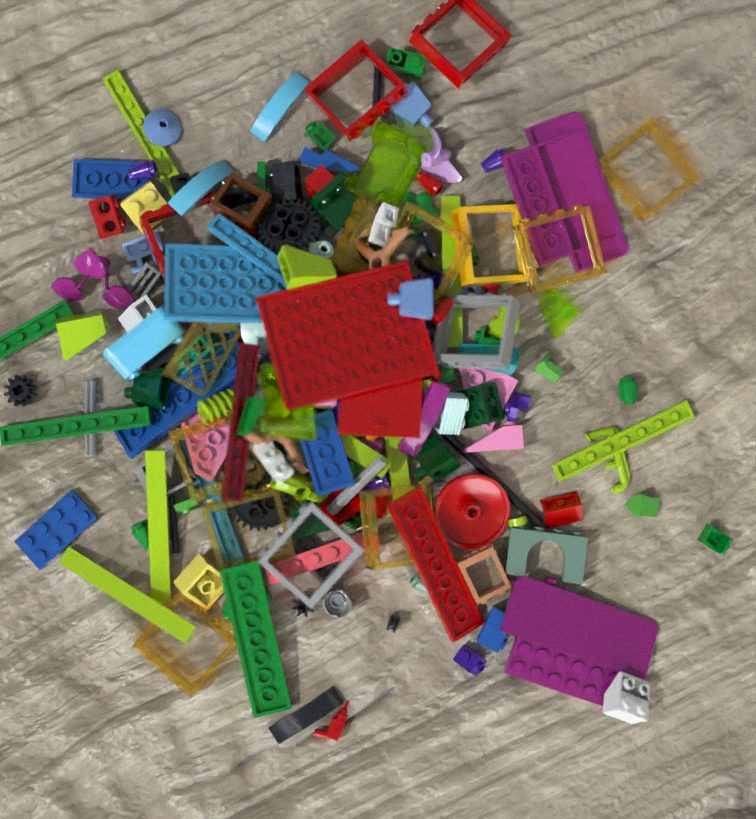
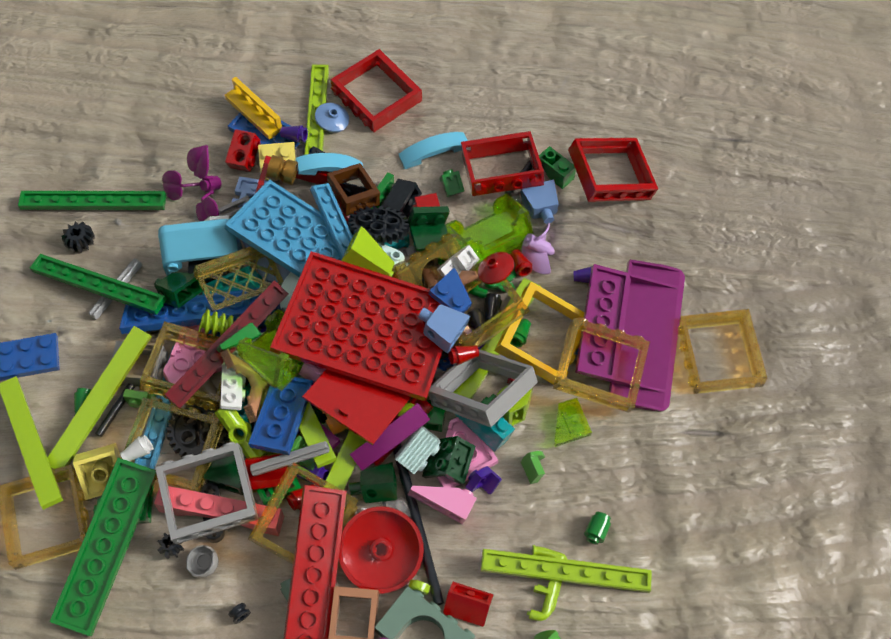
camera: 35 degrees right, 25 degrees down
(80, 331) = (153, 215): lime slope -> none
(86, 167) = (254, 109): none -> yellow fence
(169, 225) = (282, 170): none -> pearl gold wheel
(193, 44) = (379, 59): none -> red window
(229, 551) = (138, 448): none -> white cone
(329, 160) = (447, 199): blue slope -> none
(399, 261) = (451, 292): none -> blue wing
(429, 213) = (495, 268): none -> red dish

